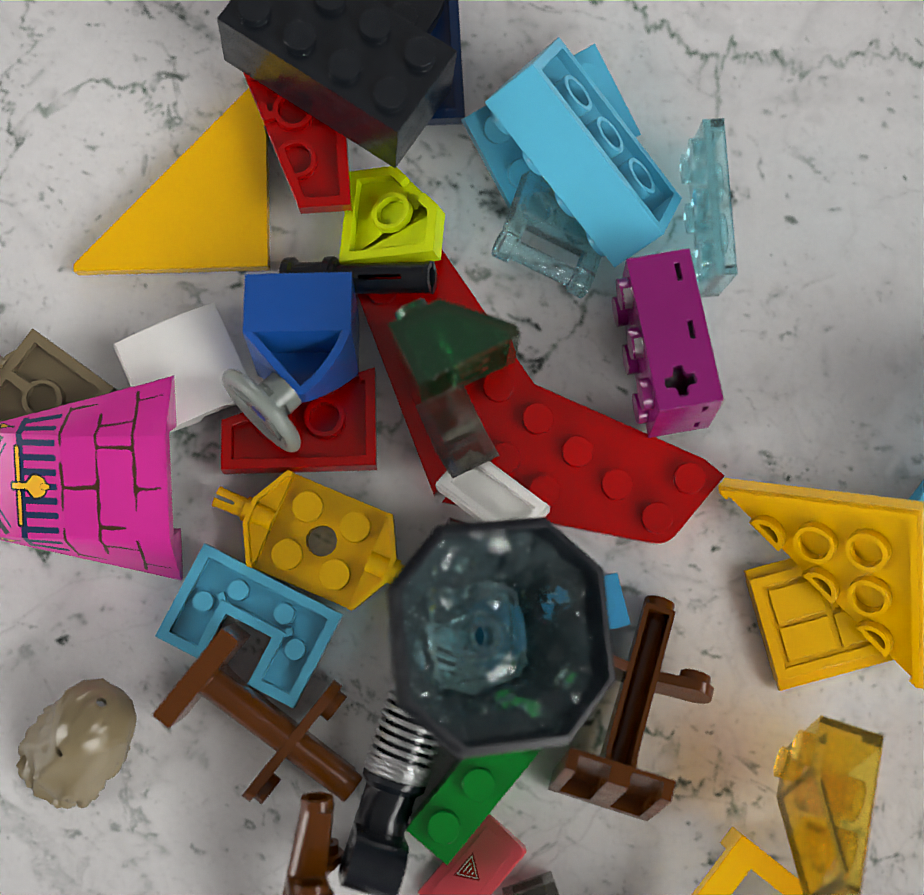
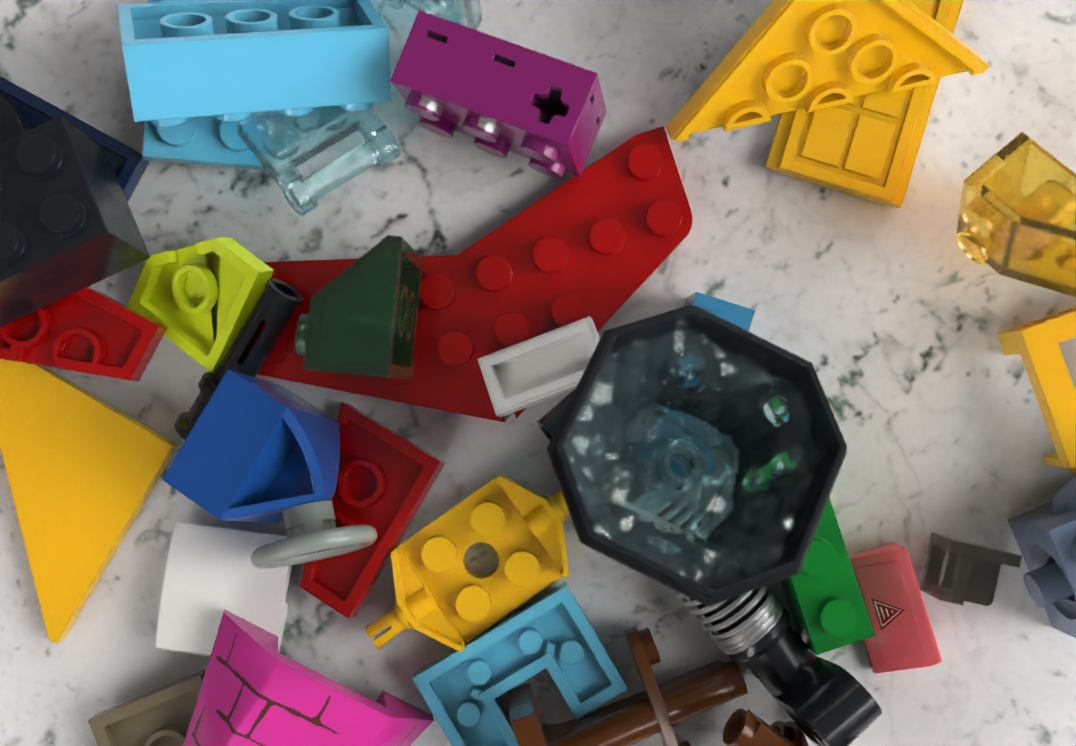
camera: 55 degrees left, 5 degrees up
(456, 431) = (457, 362): clear smoke panel -> none
(613, 776) = (887, 415): reddish brown piece -> none

